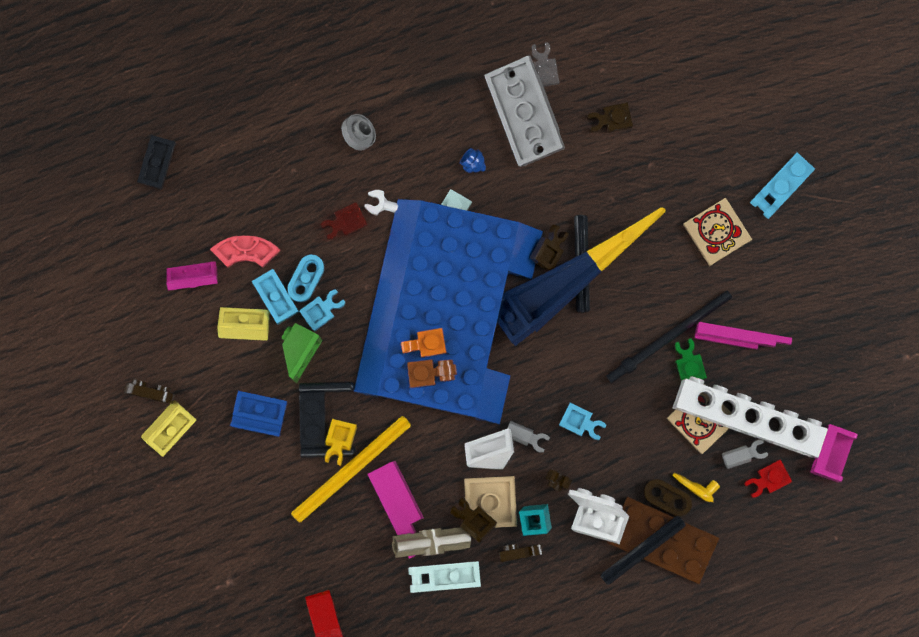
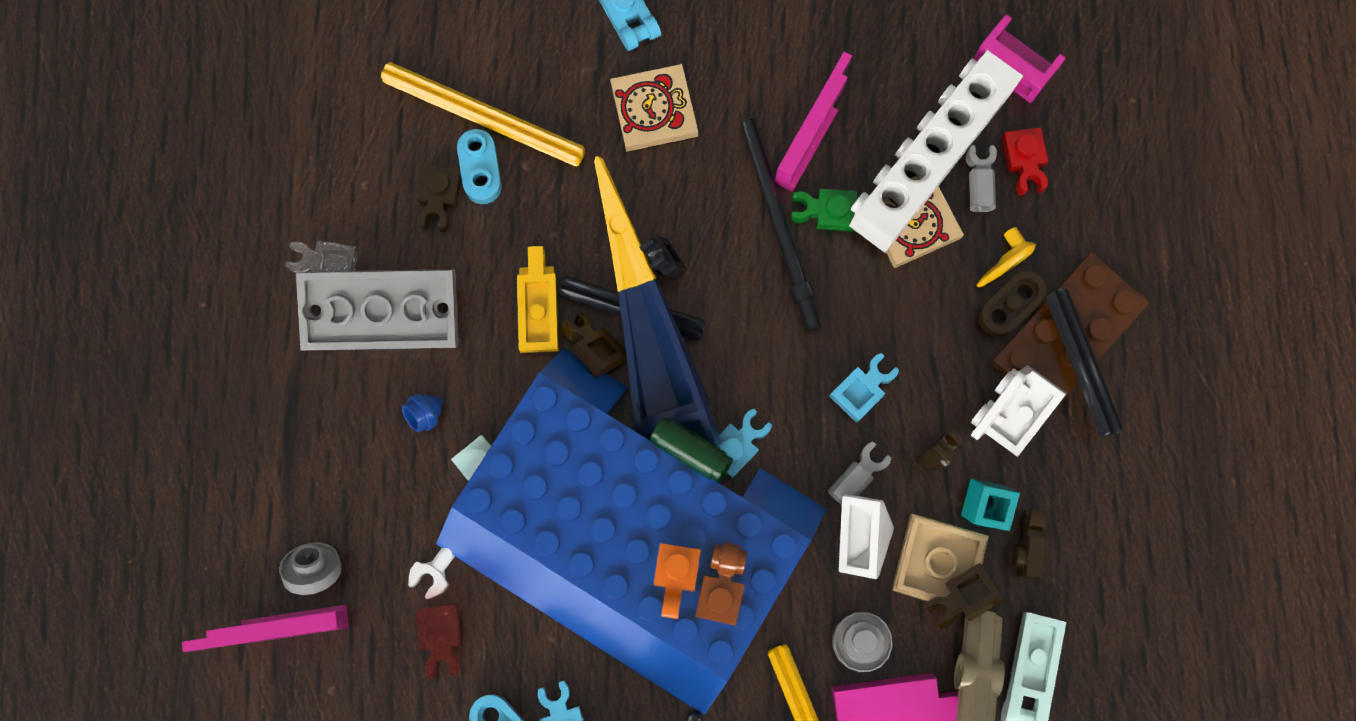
camera: 75 degrees left, 5 degrees down
(318, 125) = (273, 628): none -> dark pink piece
(427, 469) = (862, 641): none -> light grey plate
(504, 328) = (691, 449): none -> dark green piece
(518, 356) = (739, 444): none -> medium azure plate
(563, 205) = (537, 304): none -> yellow hinge
(619, 271) = (663, 257): none -> black plate
(639, 136) = (479, 164): none -> medium azure plate
(674, 126) = (483, 114): none -> yellow axle

